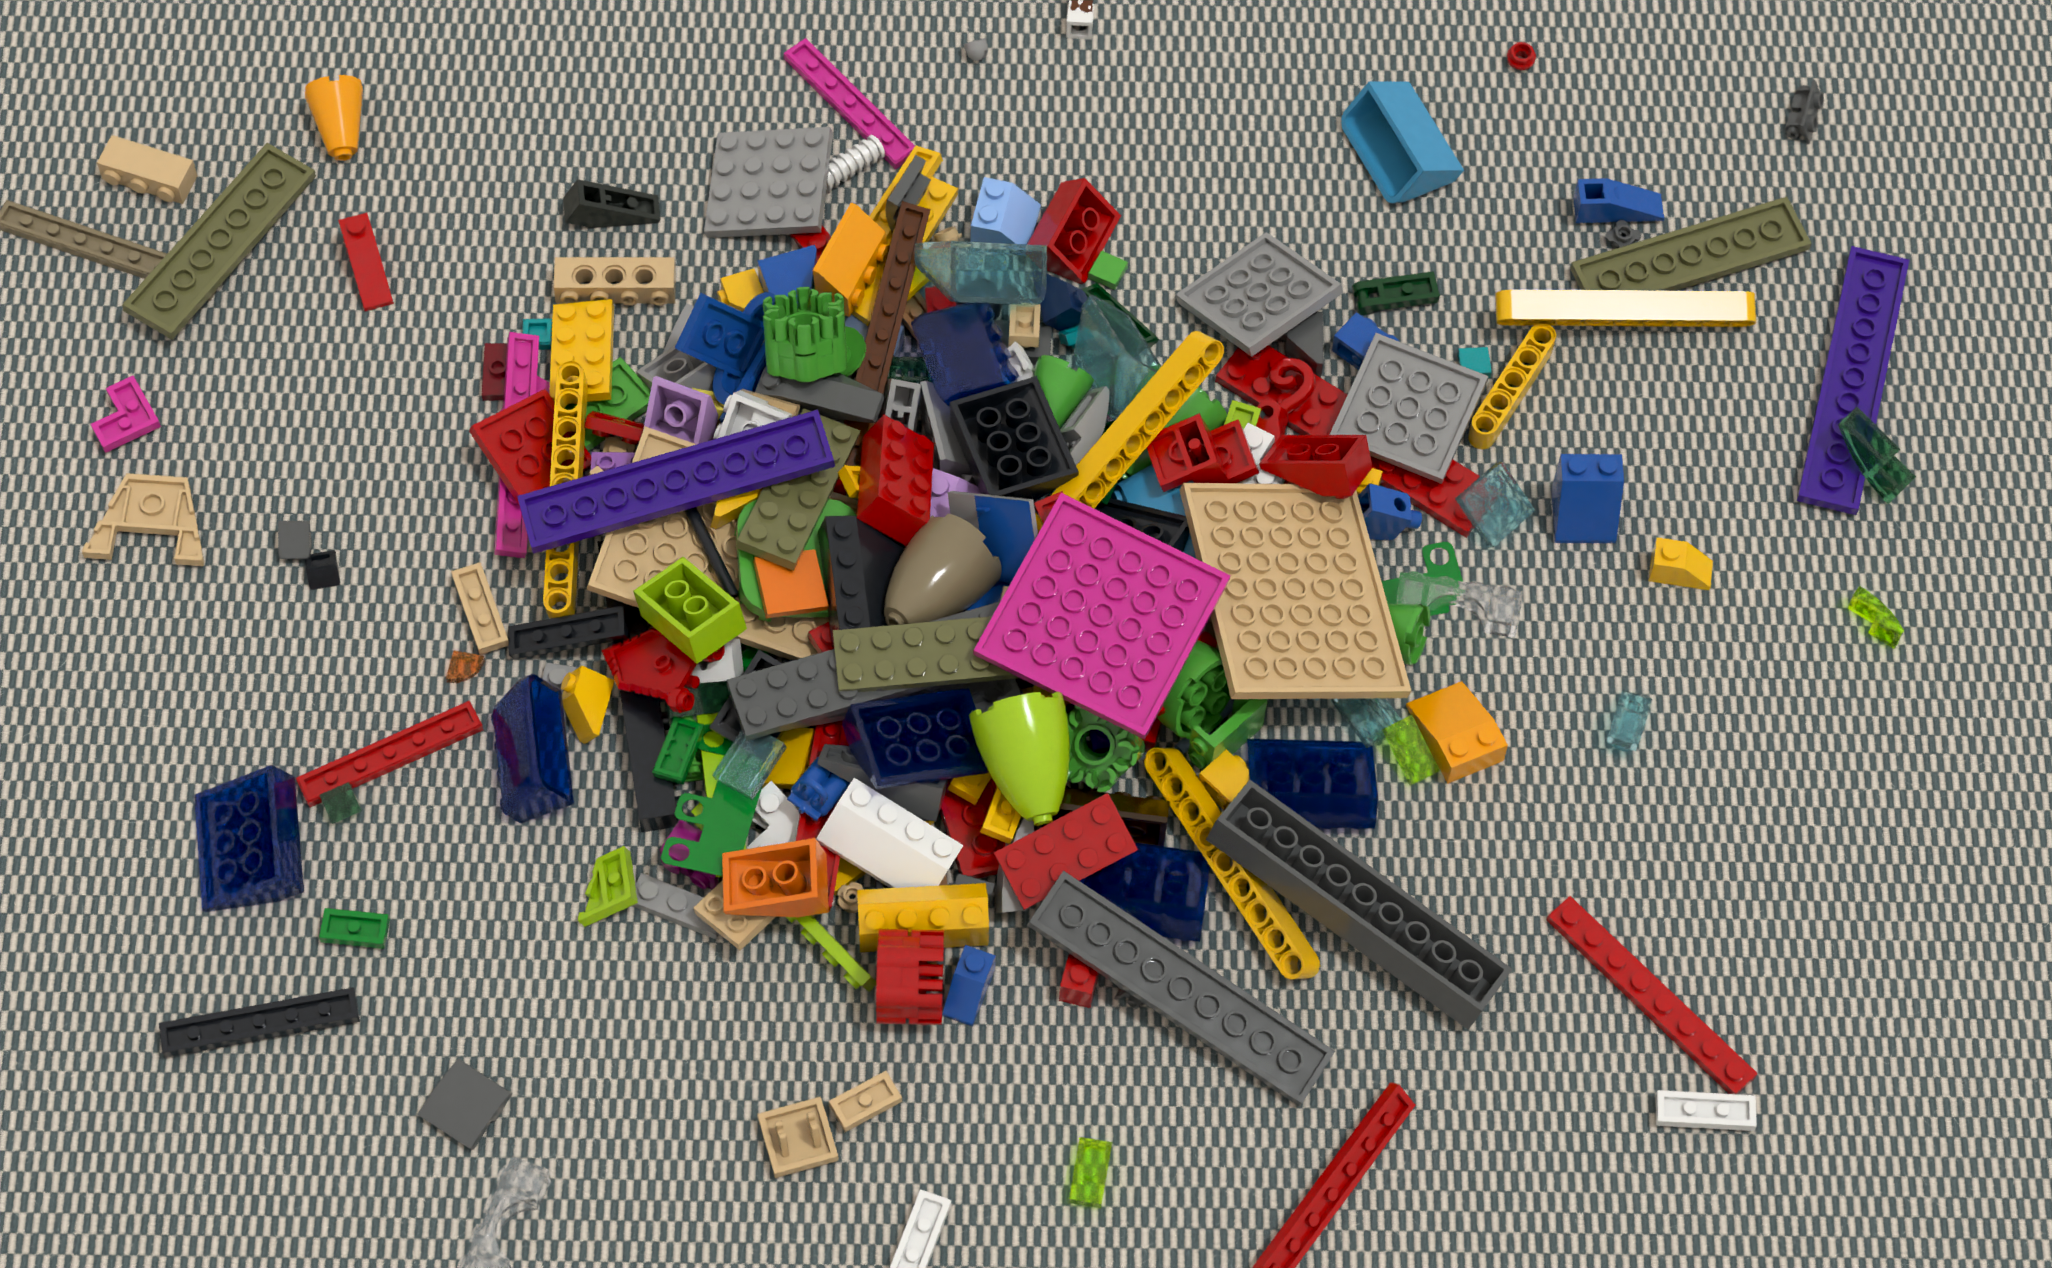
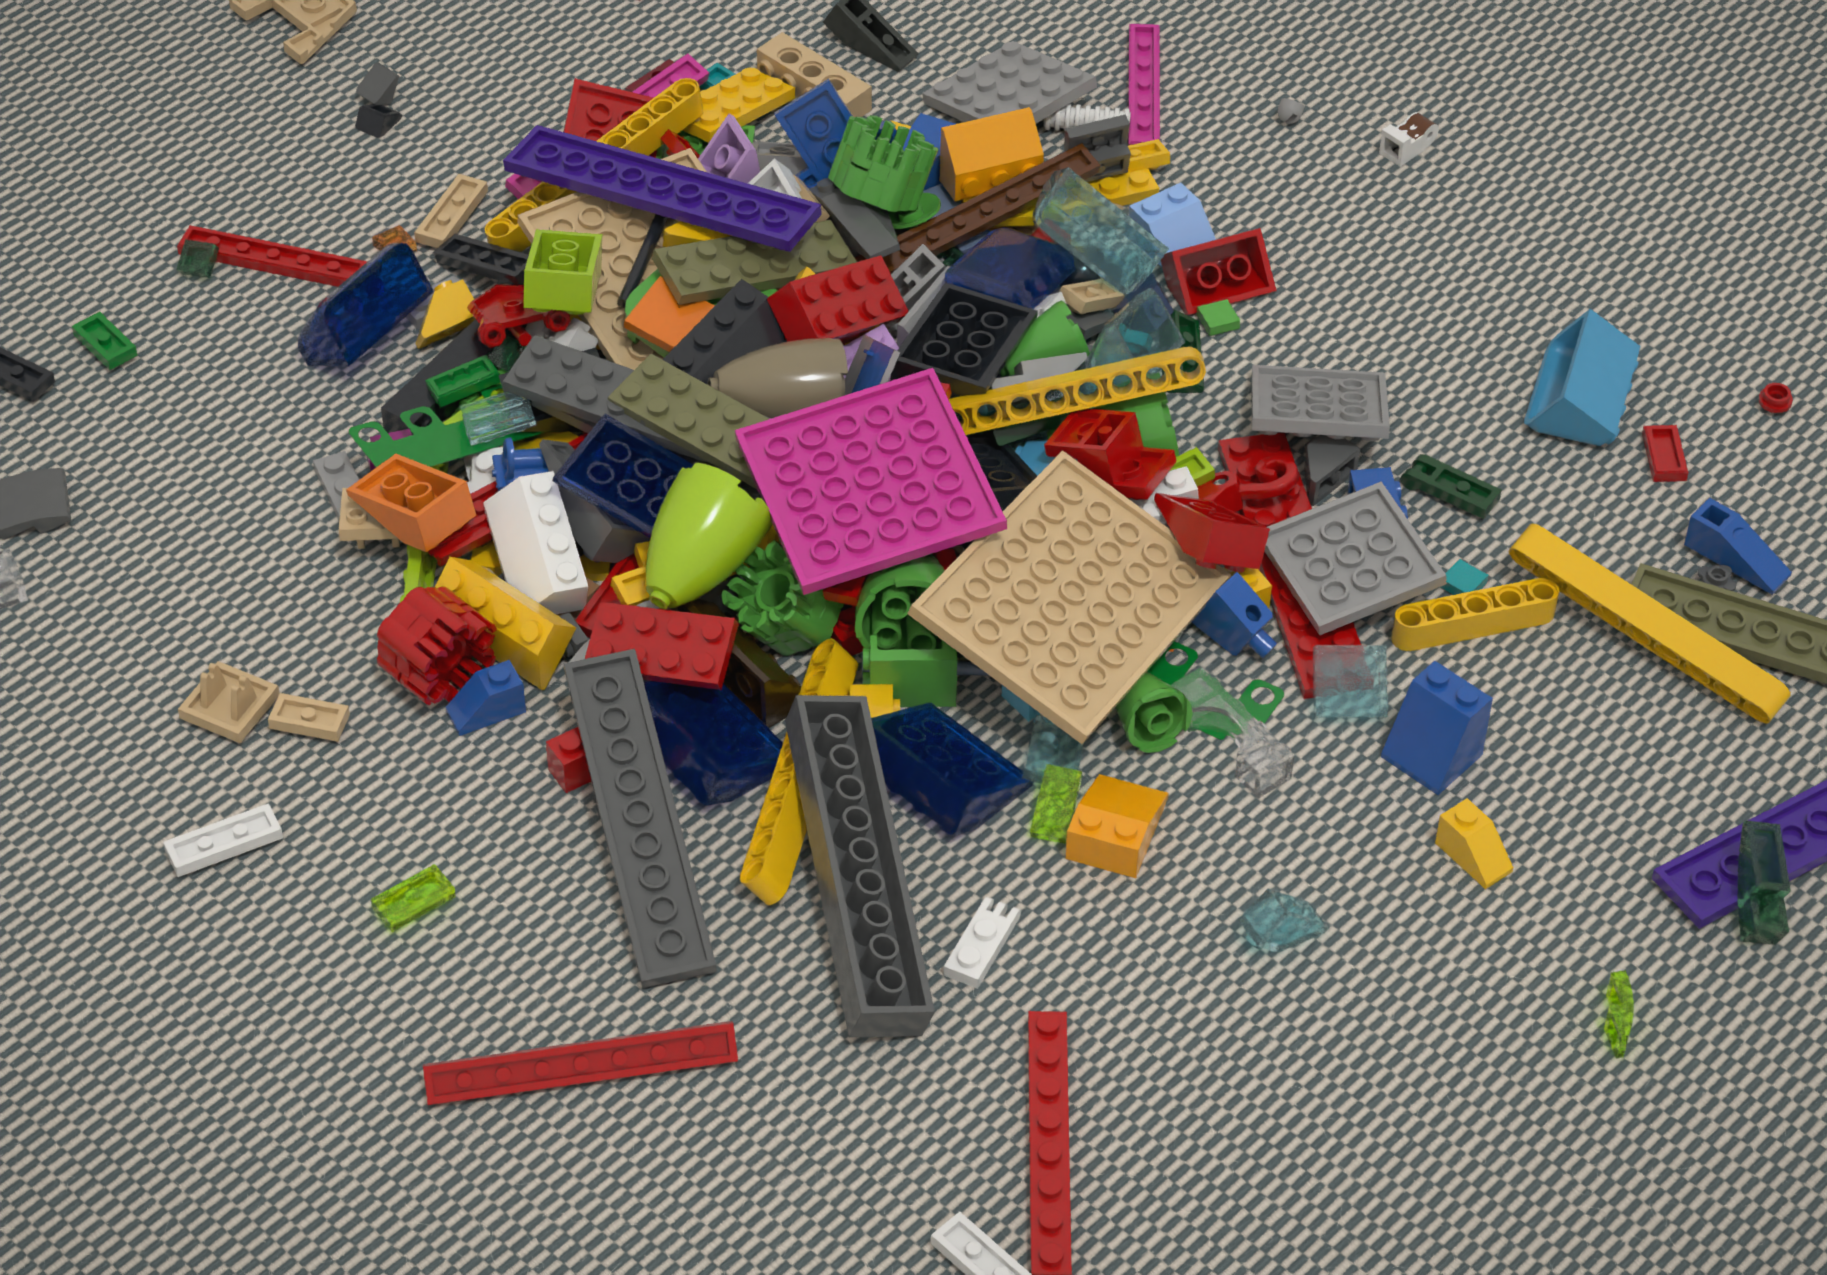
camera: 45 degrees right, 15 degrees down
(249, 841) = (109, 239): clear blue slope -> none
(610, 887) = (310, 443): lime wing -> none
(1466, 890) = (981, 943): none -> white hinge
(1495, 156) = (1665, 453): none -> red tile

